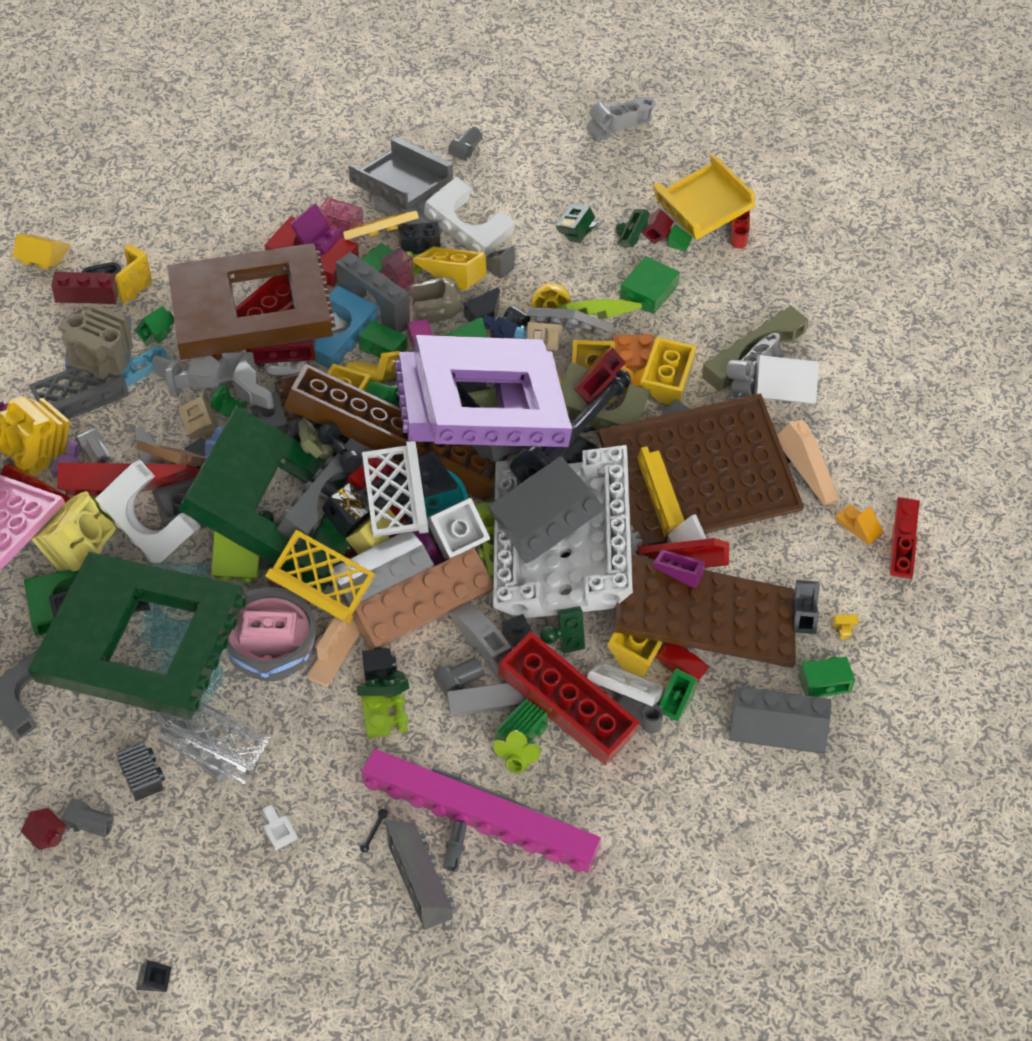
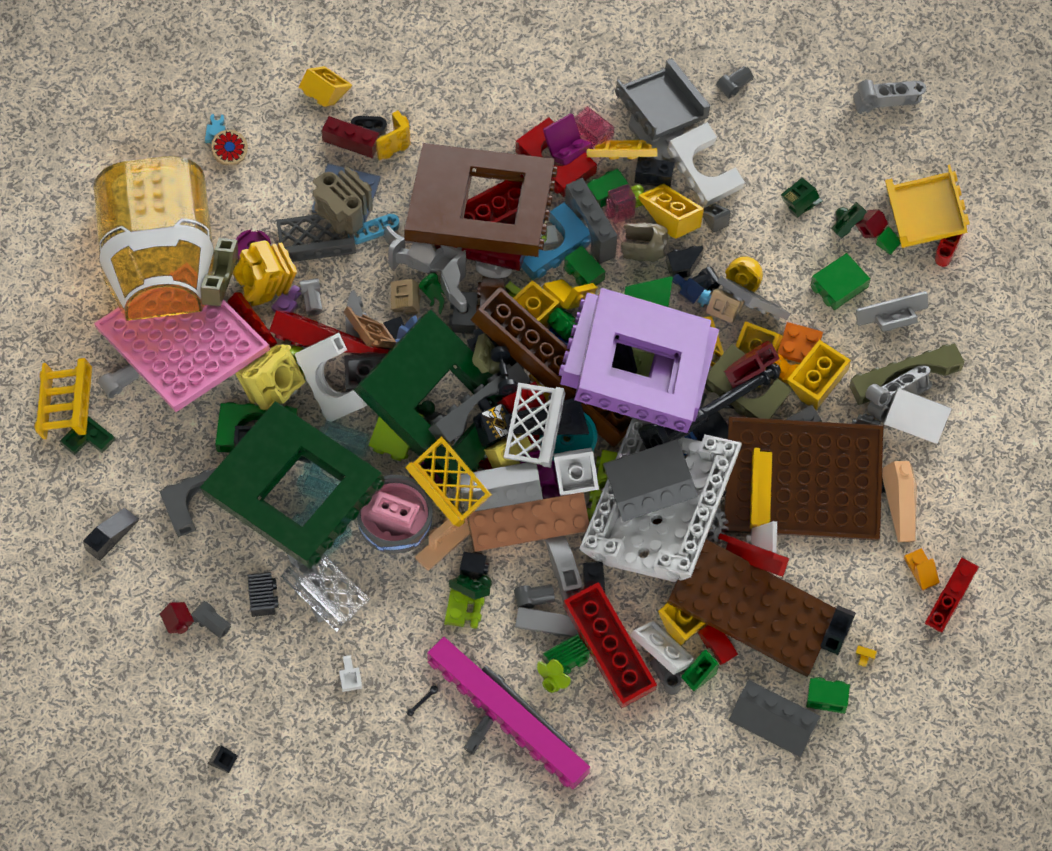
camera: 20 degrees right, 10 degrees up
(155, 326) = (396, 197): green brick -> none
(418, 327) = (619, 272): dark pink brick -> none
(419, 874) = (443, 747): dark grey slope -> none
(570, 630) = (635, 588): dark green plate -> none
(603, 307) = (789, 294): lime slope -> none
(692, 571) = (745, 574): magenta slope -> none
(715, 297) = (894, 312): none -> light grey bracket

